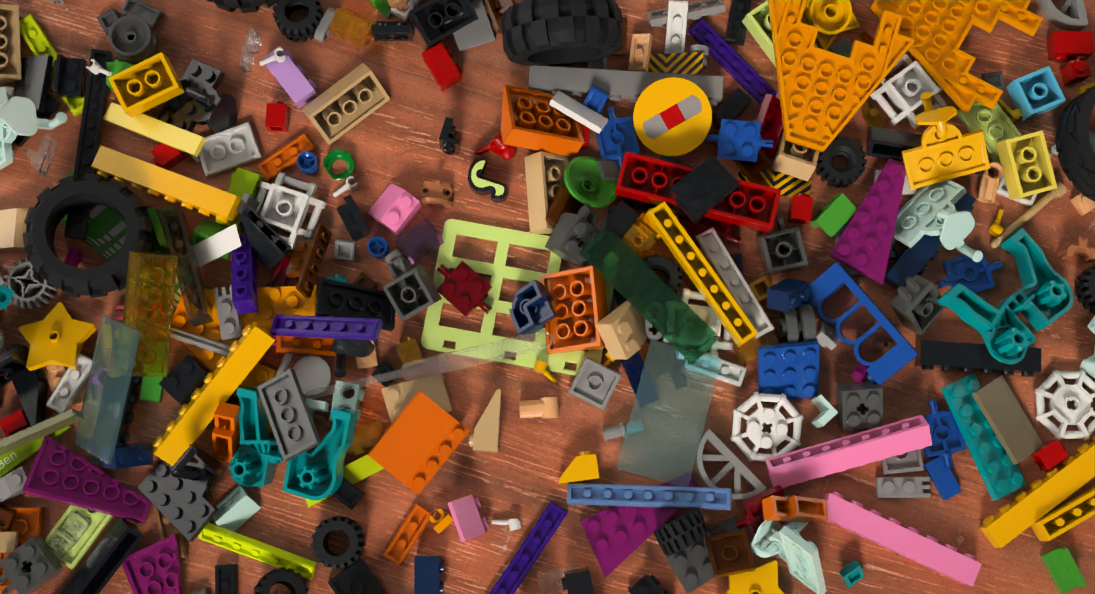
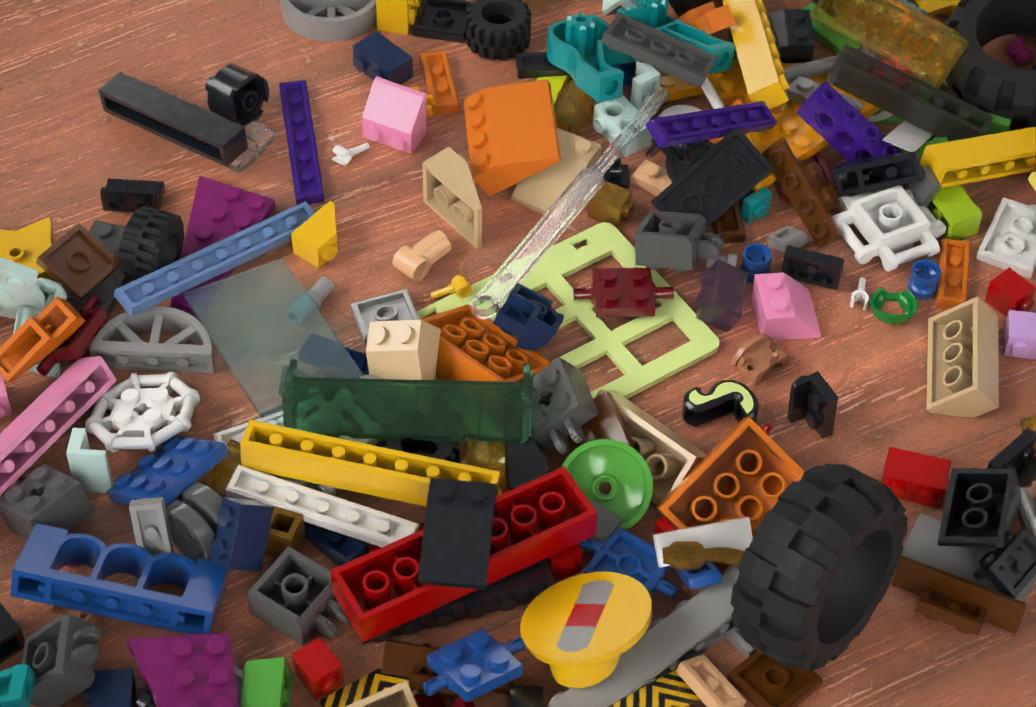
camera: 135 degrees right, 30 degrees down
(596, 104) = (692, 555): none -> pearl gold piece

